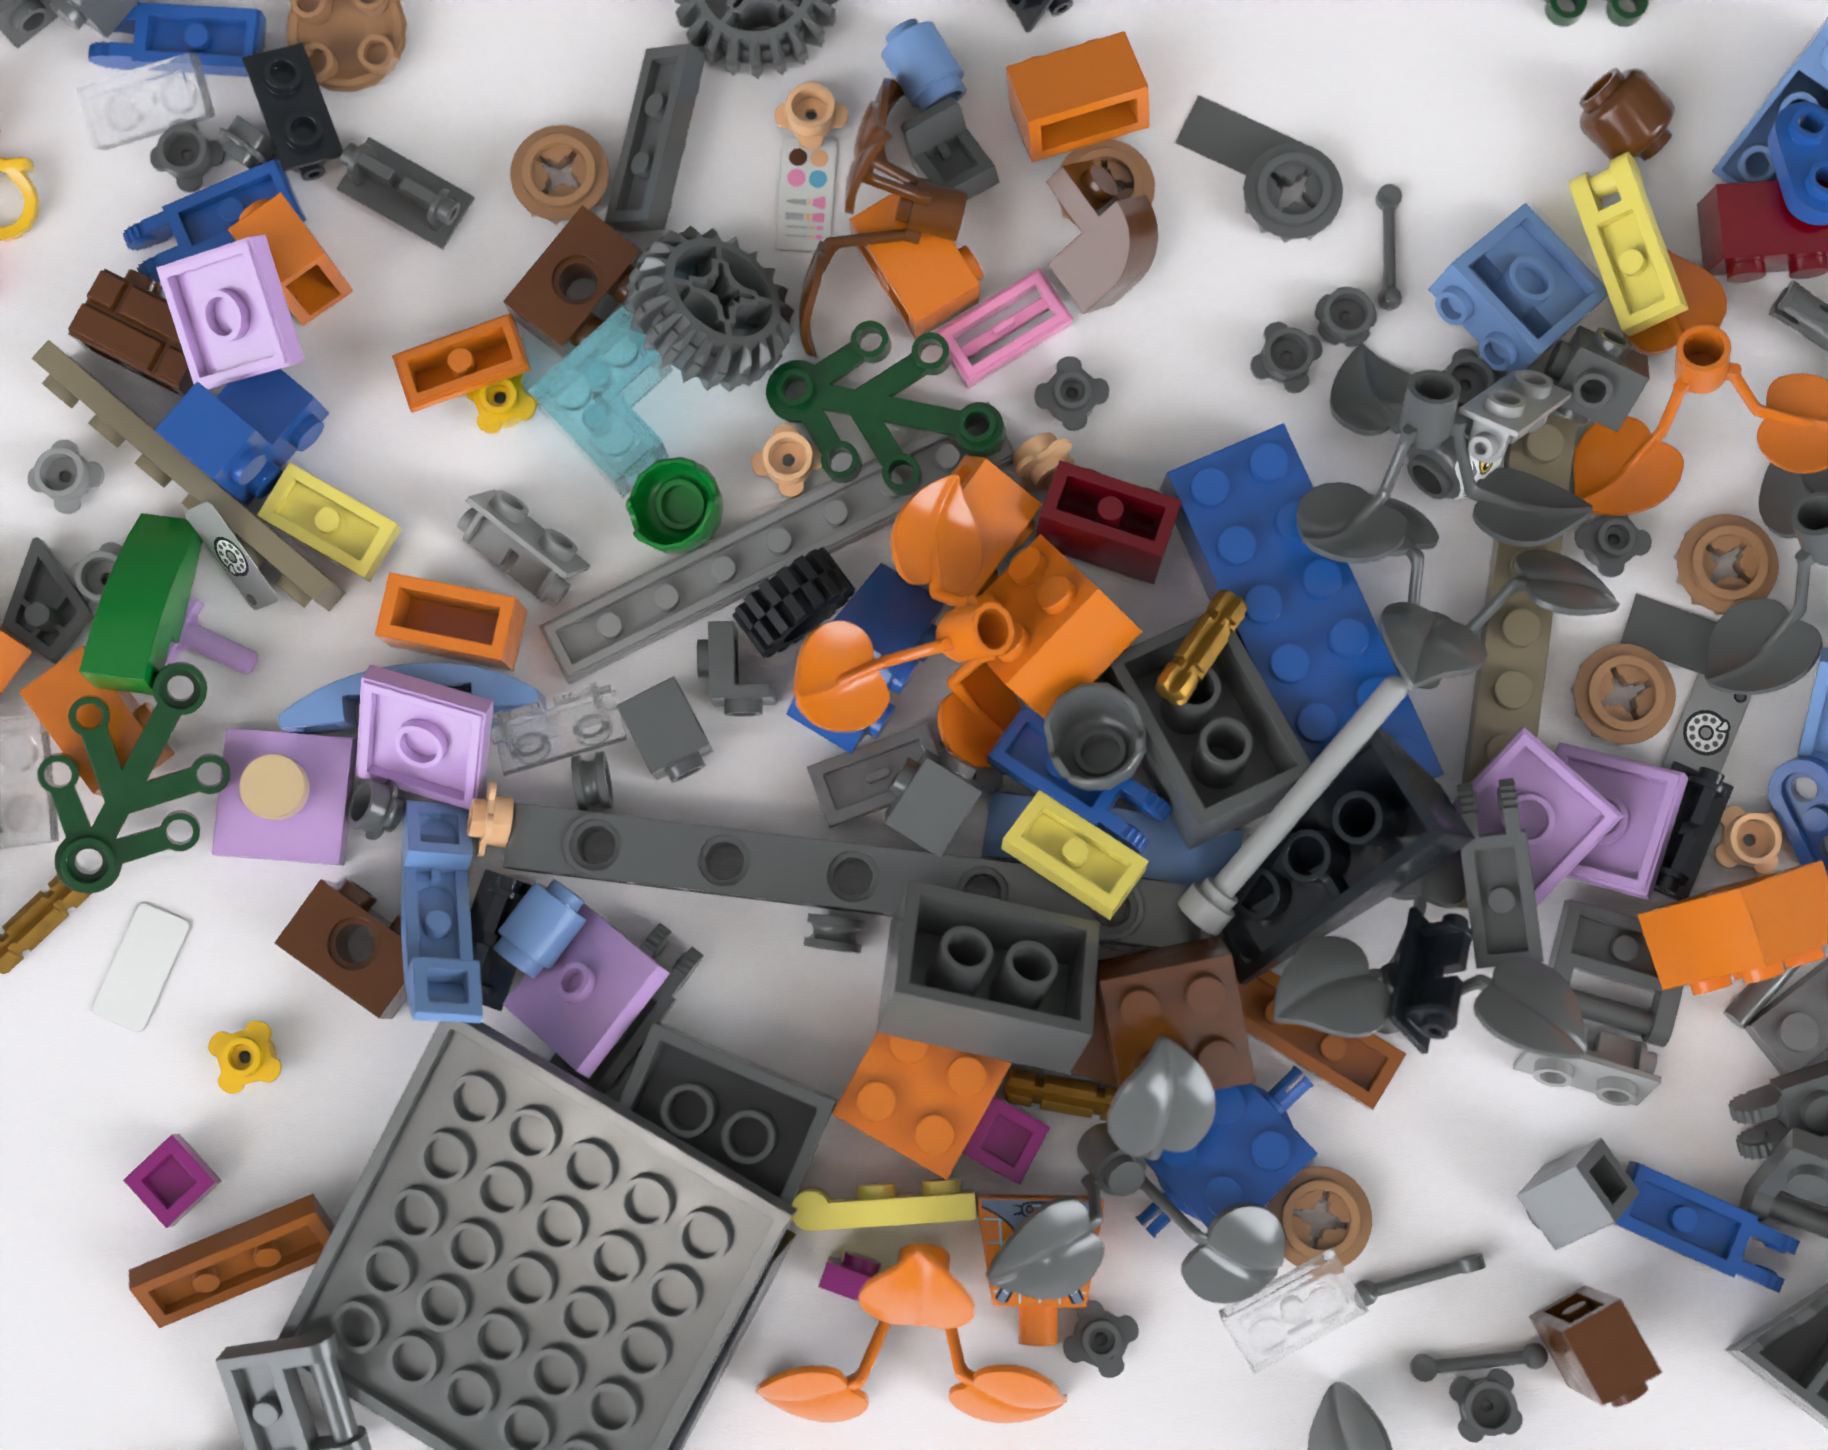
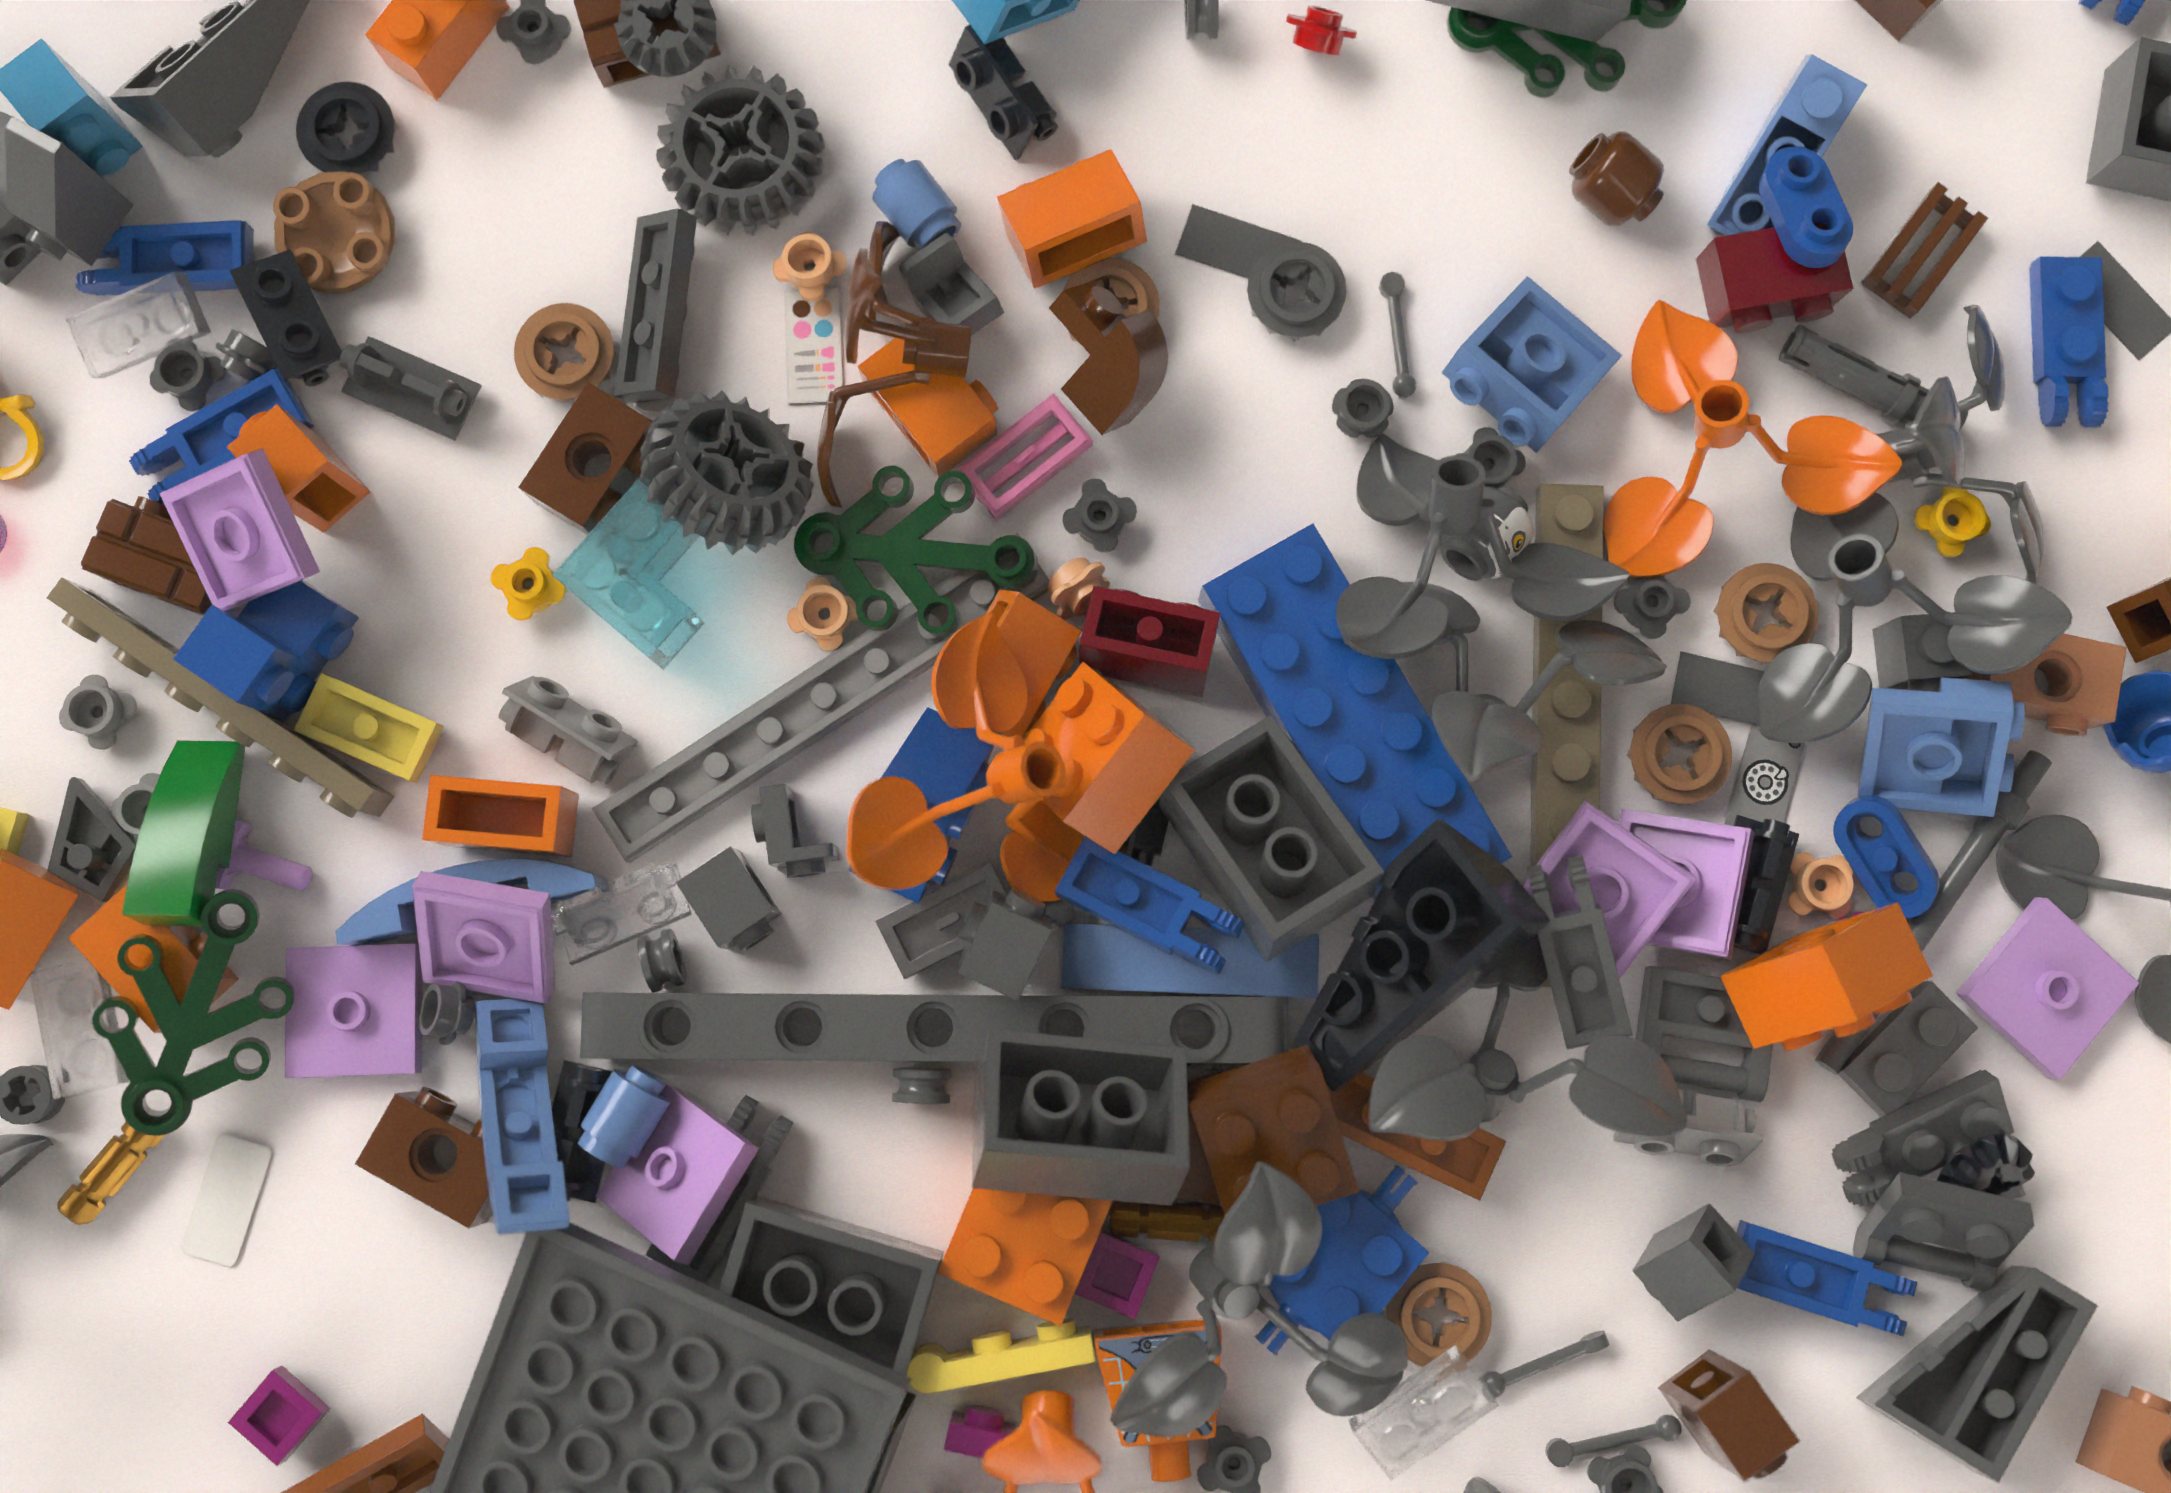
camera: 10 degrees left, 0 degrees up
(231, 555) = (271, 774): light grey sticker -> none
(263, 1062) = (359, 1276): yellow plate -> none
(274, 787) = (339, 1004): tan tile -> none
(461, 362) = (484, 553): orange slope -> none
(490, 819) = (562, 1011): light nougat plate -> none
(675, 505) = (714, 673): green hair -> none
(793, 602) = (843, 757): black tyre -> none
(1074, 854) = (1152, 982): light yellow plate -> none
(1095, 736) = (1159, 862): dark grey hair -> none
(1201, 647) = (1255, 759): pearl gold axle -> none
(1212, 901) = (1295, 1012): light grey piece -> none
(1298, 344) = (1303, 438): dark grey plate -> none
(1422, 999) = (1517, 1090): black hinge -> none
(1509, 411) = (1535, 486): light grey hinge -> none
(1600, 373) = (1617, 442): dark grey brick -> none
(1628, 246) = (1634, 308): light yellow plate -> none

